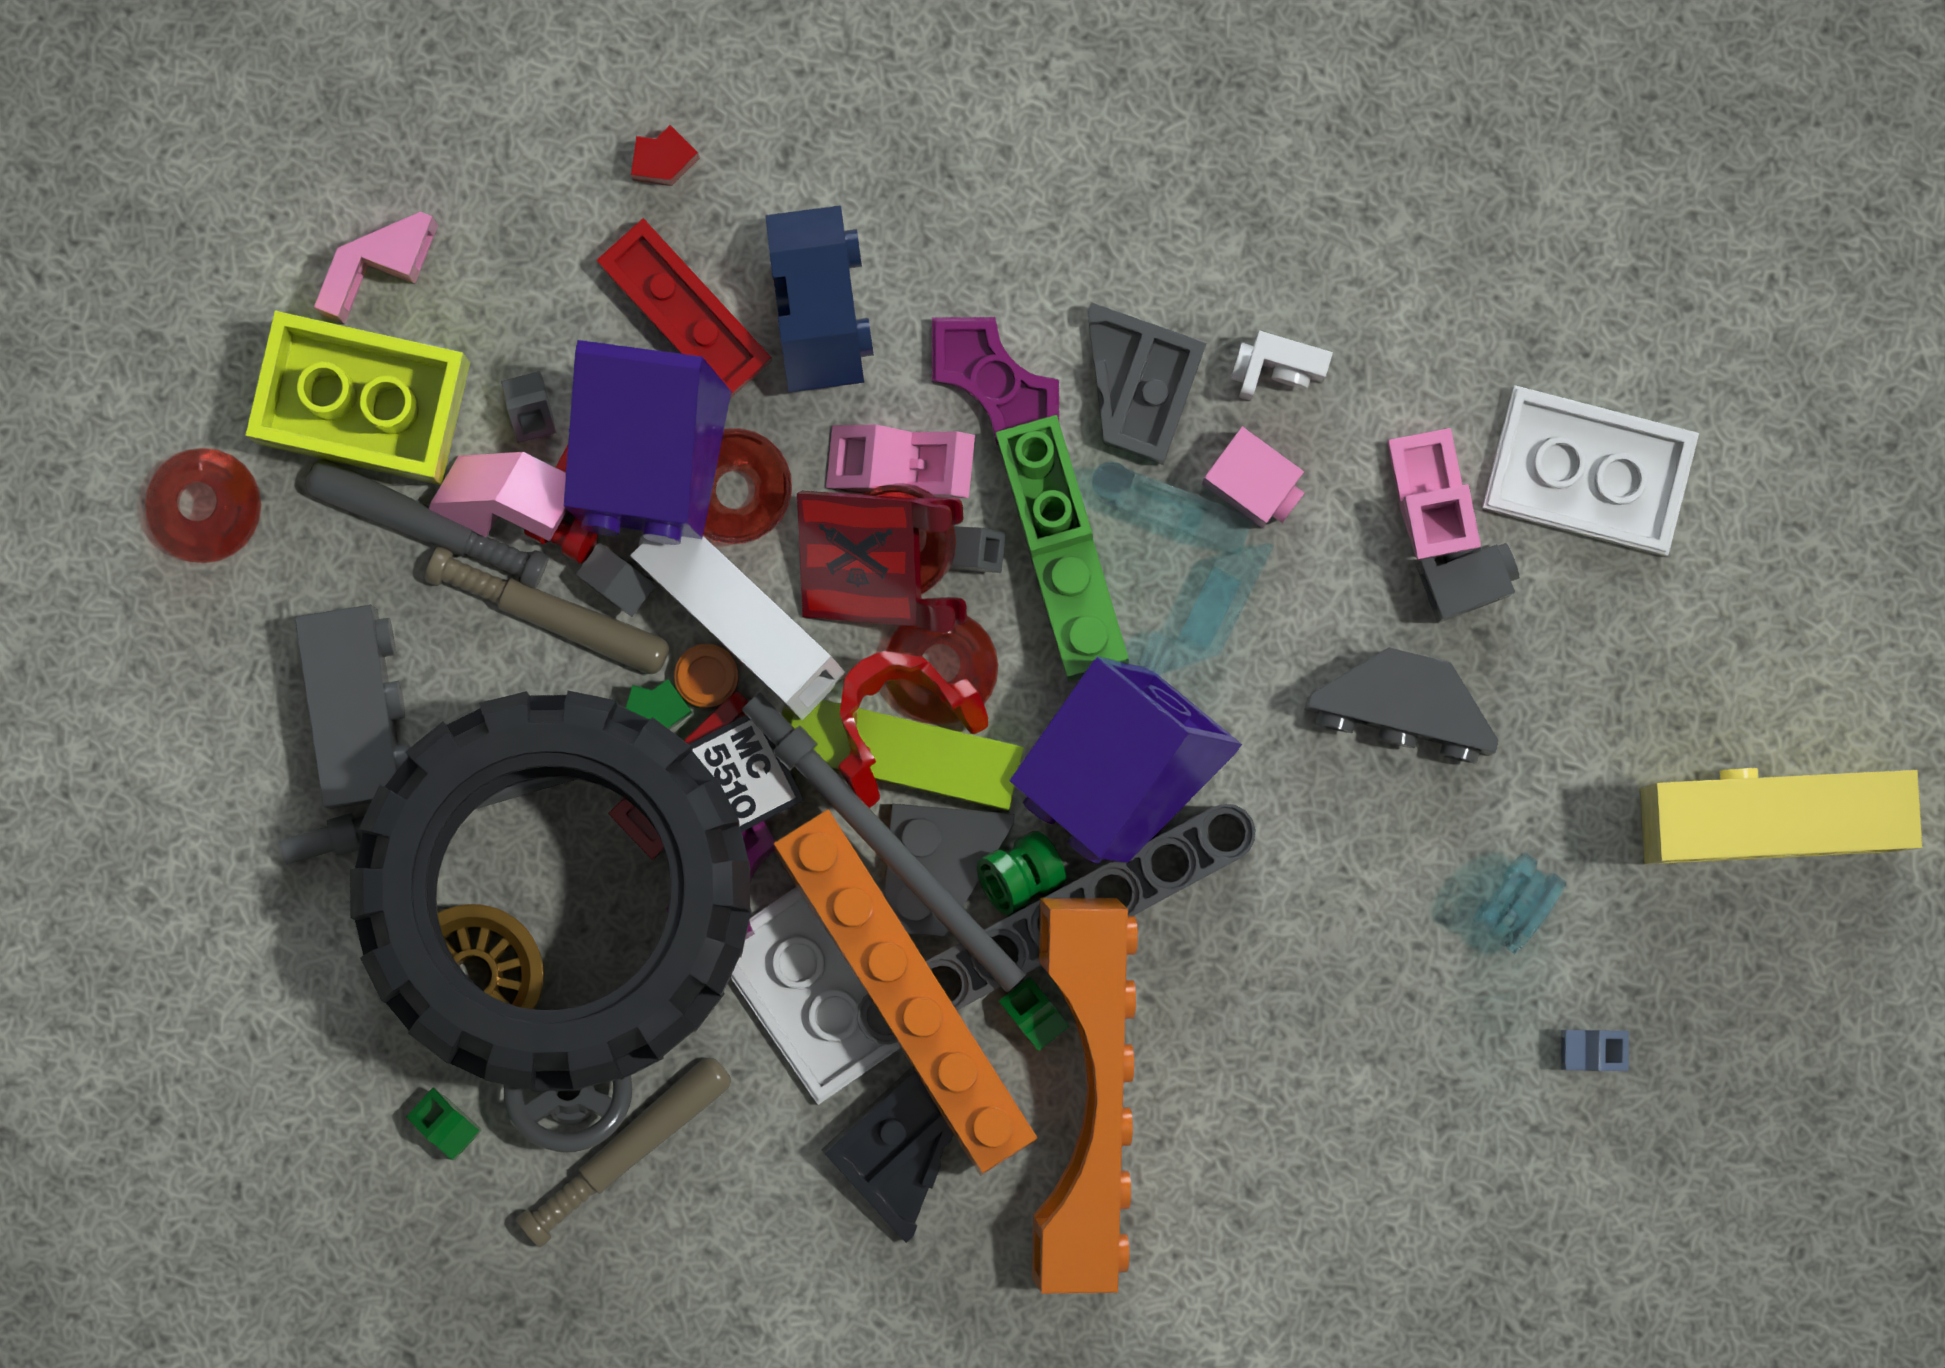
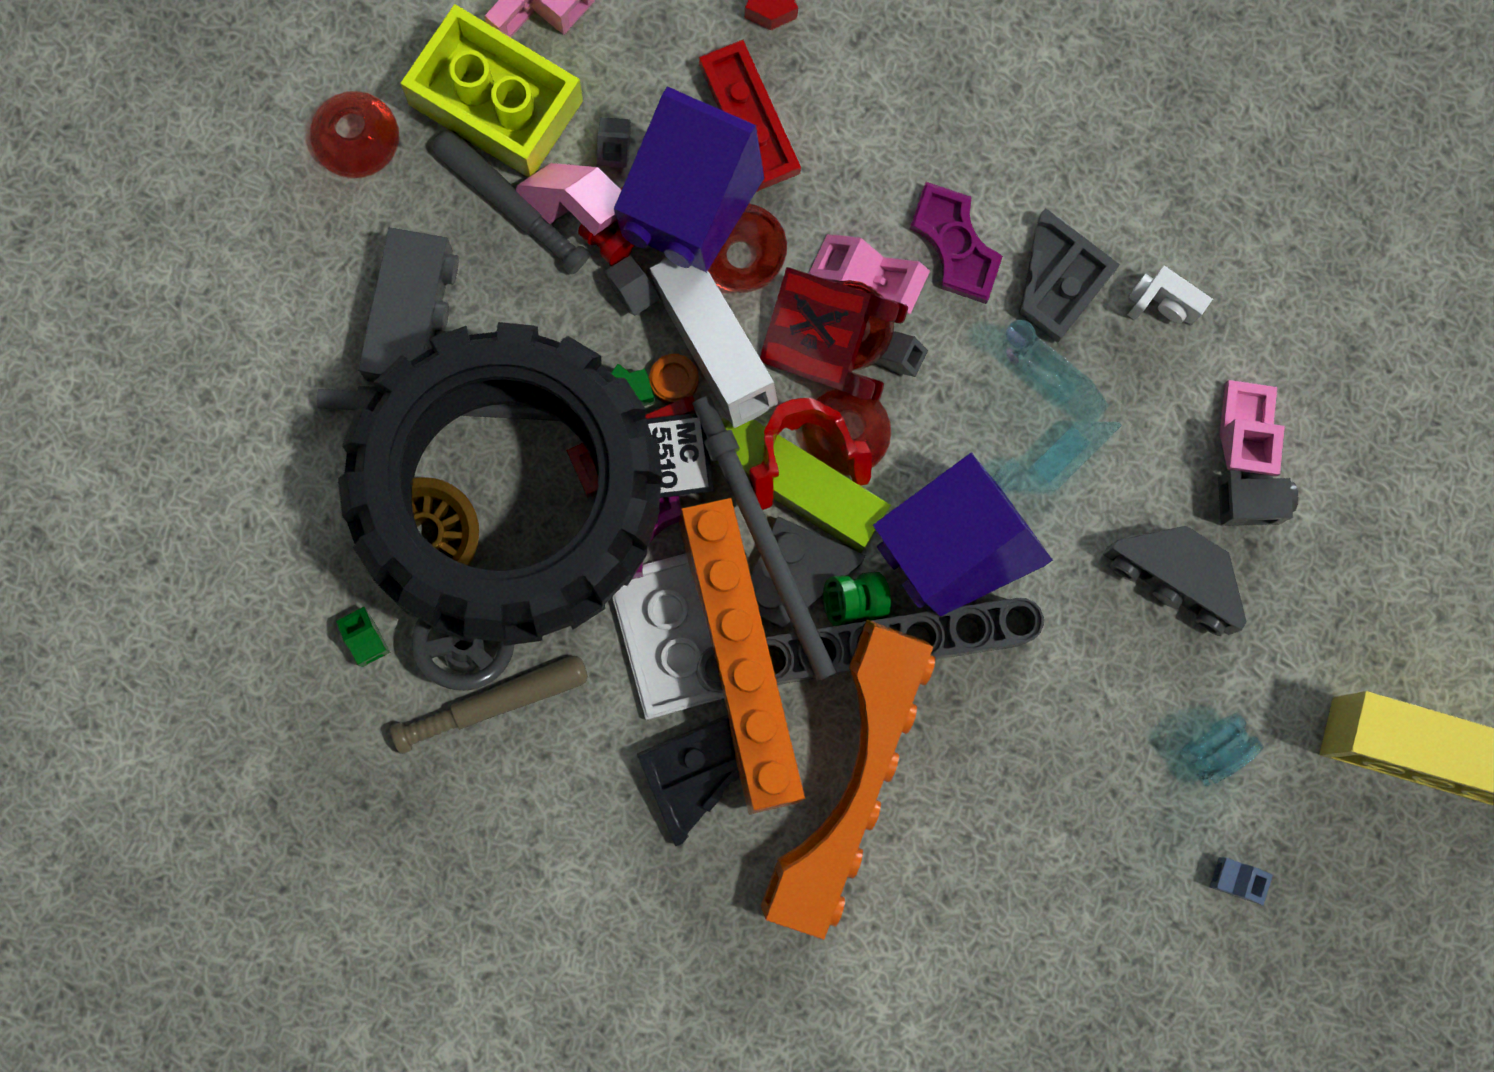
camera: 10 degrees right, 5 degrees down
(579, 624) = (582, 299): dark tan piece -> none
(815, 298) = (848, 137): dark blue brick -> none
(1034, 1013) = (830, 707): green piece -> none
(1061, 545) = (966, 369): bright green slope -> none
(1255, 479) = (1123, 373): bright pink brick -> none
(1590, 471) = (1368, 454): white tile -> none

